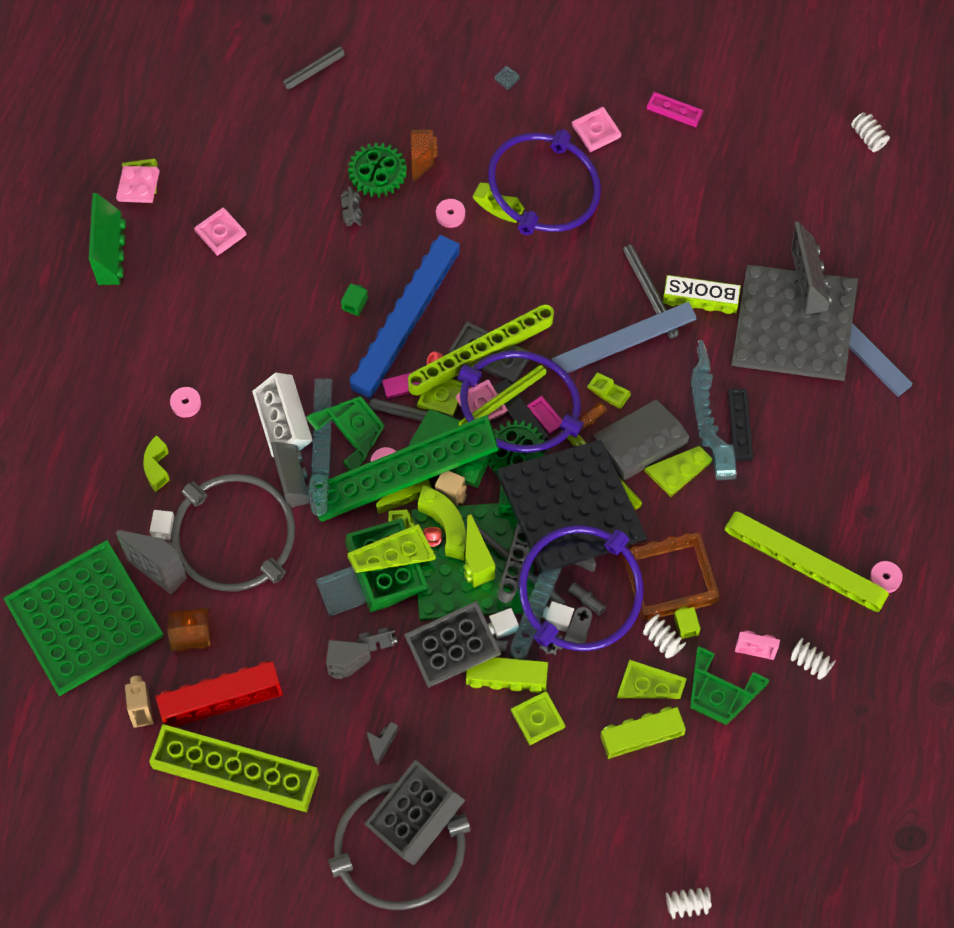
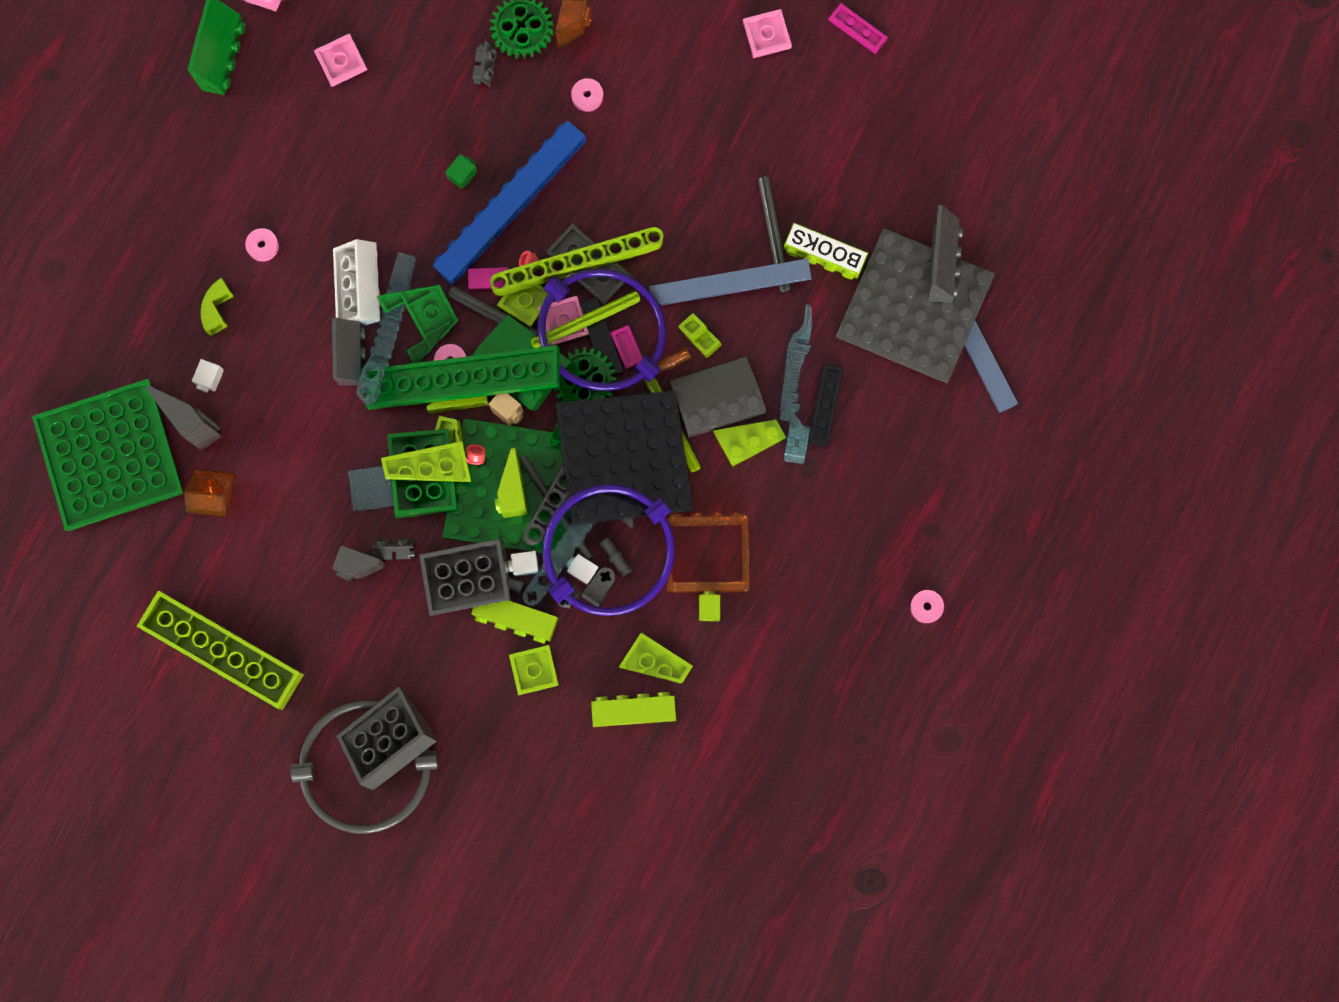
camera: 15 degrees right, 15 degrees up
(138, 702) = (142, 558): tan torso -> none
(219, 695) = (221, 572): red brick -> none
(271, 569) = (249, 351): dark grey piece -> none
(380, 746) = (369, 662): dark grey slope -> none
(447, 515) = (495, 440): lime brick -> none
(485, 199) = (638, 97): lime brick -> none
(528, 221) = (723, 41): dark purple piece -> none
(663, 637) = (681, 616): white piece -> none
(688, 902) = (631, 894): white piece -> none
(718, 697) = (718, 691): green wing -> none
(756, 645) = (779, 653): bright pink plate -> none
(806, 561) = (850, 571): lime beam -> none
(811, 659) = (824, 677): white piece -> none
(870, 132) = (1059, 106): white piece -> none

